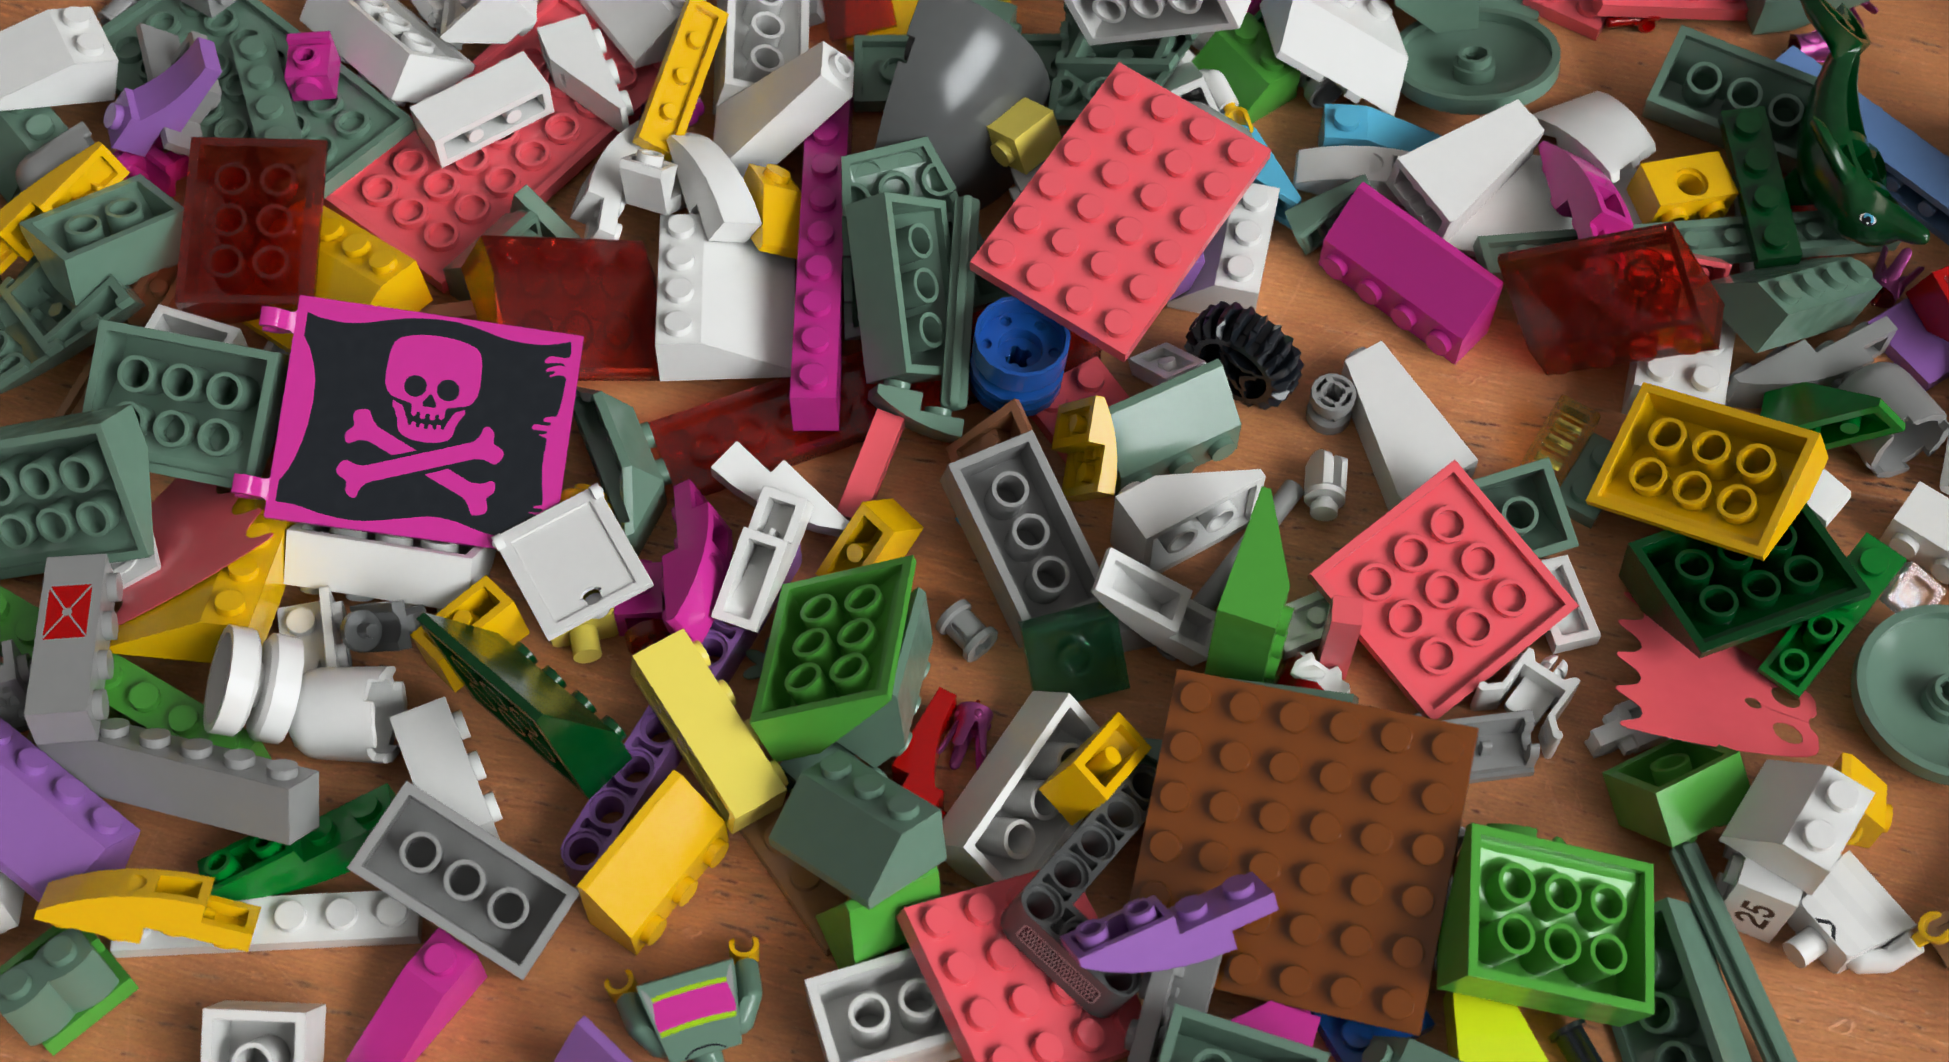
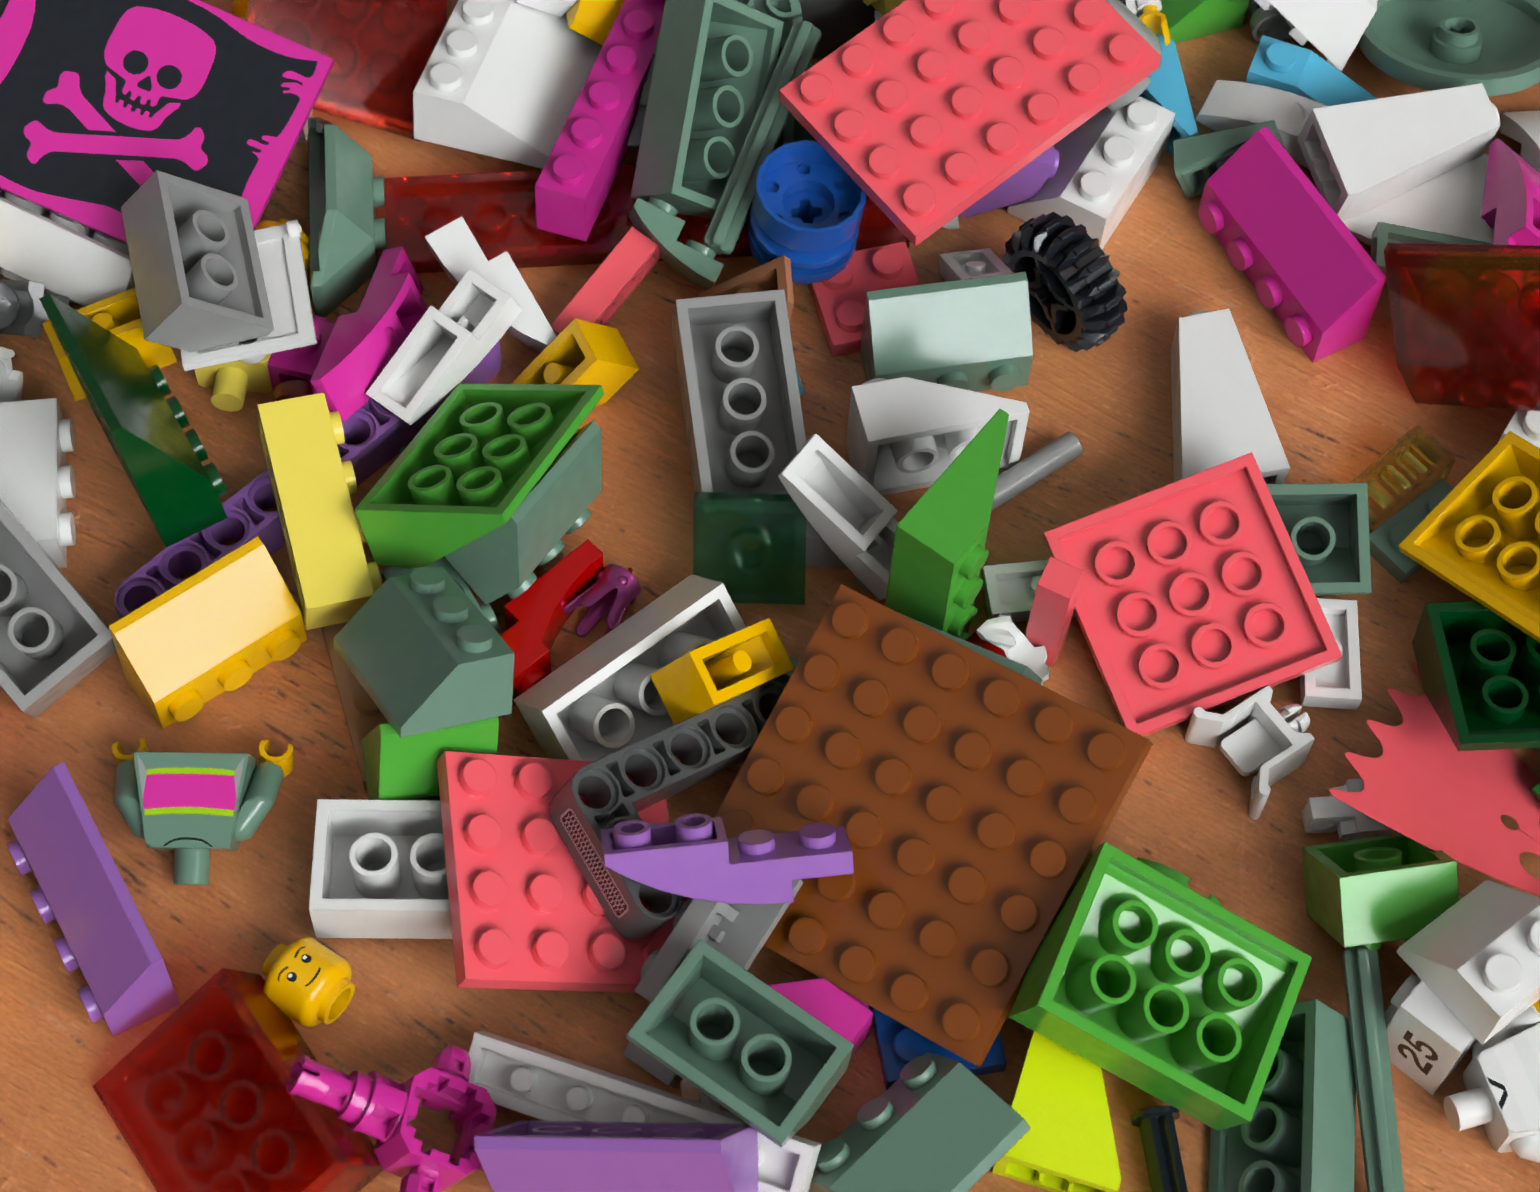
camera: 15 degrees right, 0 degrees up
(529, 548) = (195, 265): none -> light grey slope
(966, 630) = (646, 491): light grey bush -> none
(1088, 437) = (849, 321): yellow slope -> none
(1325, 484) = (1108, 449): white arm -> none
(1330, 404) = (1148, 363): light grey wheel -> none
(1502, 746) = (1186, 785): light grey hinge -> none

